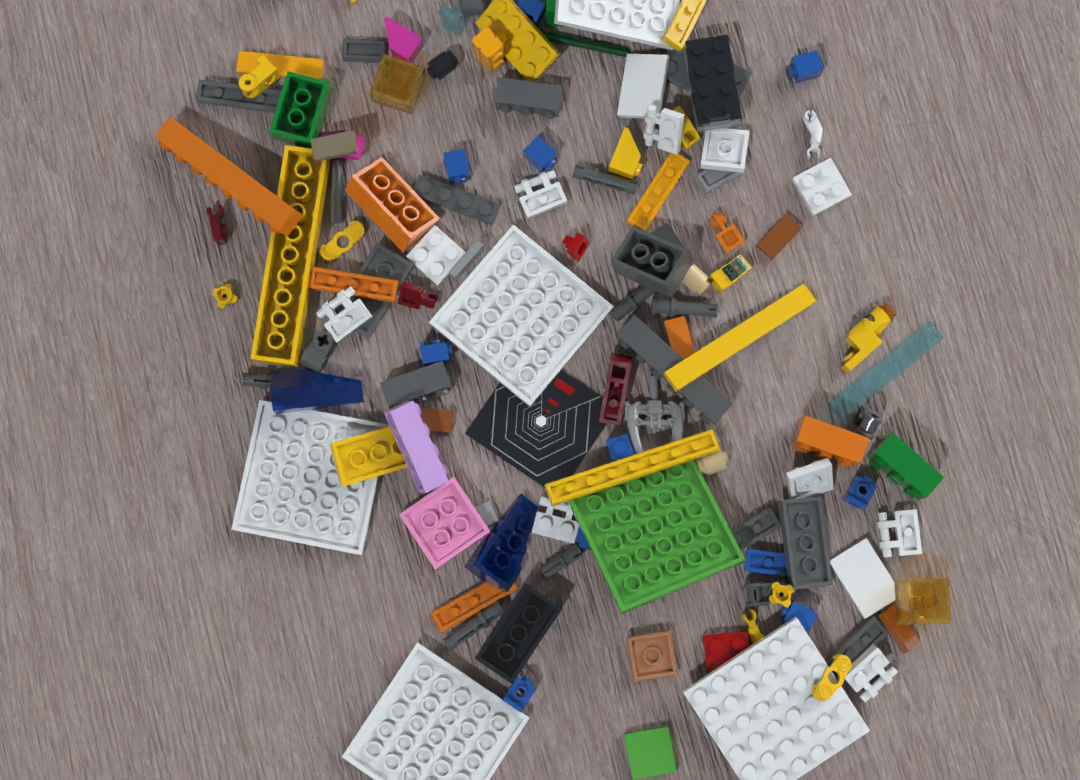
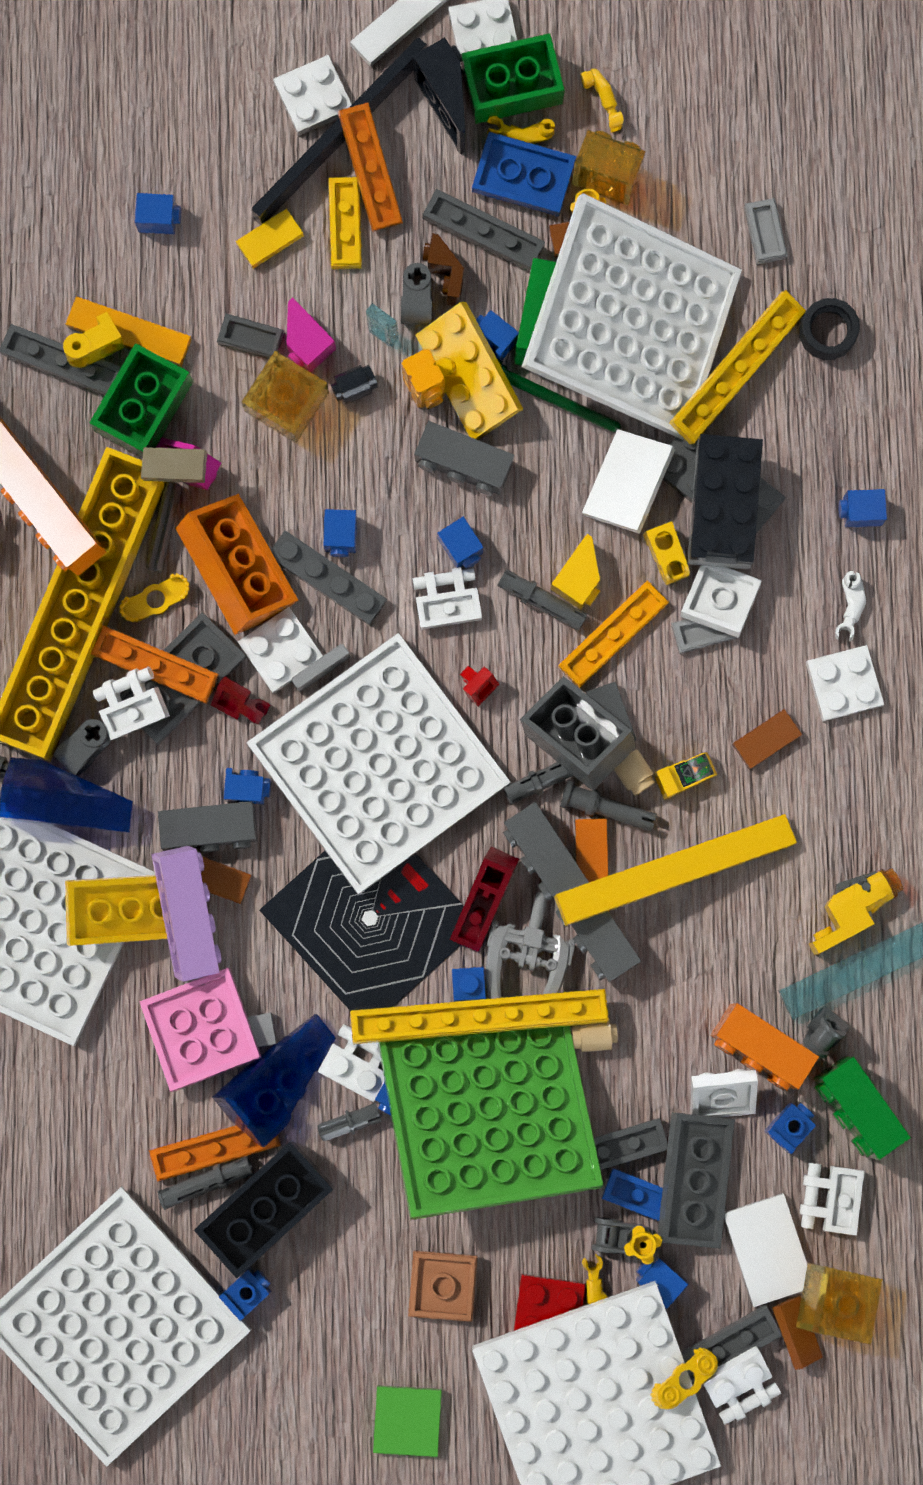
camera: 10 degrees right, 0 degrees up
(670, 130) = (649, 554): white plate -> none
(729, 237) = (696, 723): orange plate -> none

